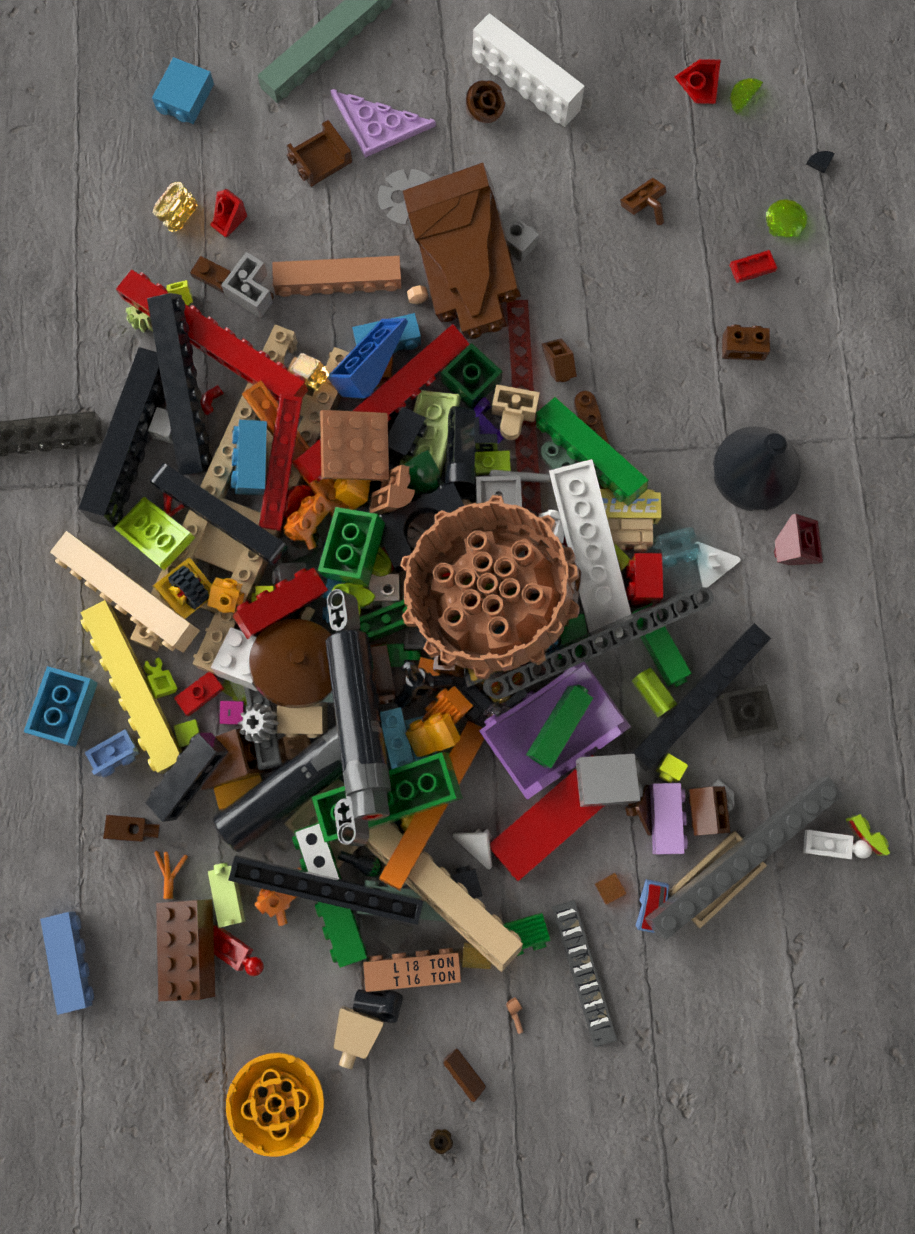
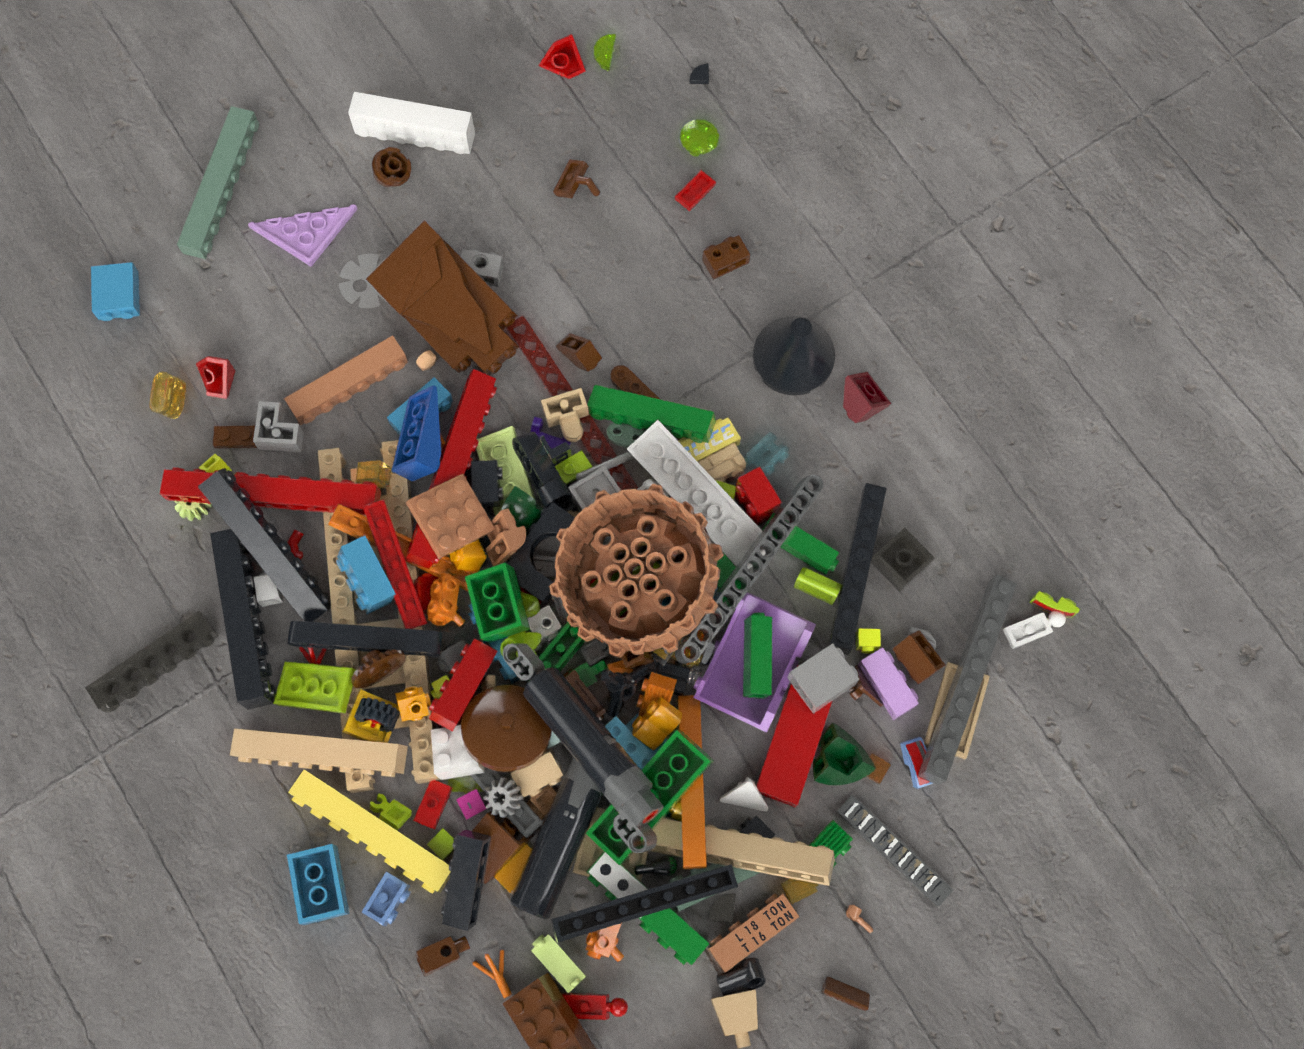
camera: 30 degrees left, 5 degrees down
(214, 546) = (377, 667): none -> reddish brown gear
(320, 155) = (271, 284): reddish brown panel -> none
(471, 376) = (513, 404): dark green brick -> none
(582, 862) = (840, 759): none -> dark green brick
(714, 564) = (804, 452): white piece -> none

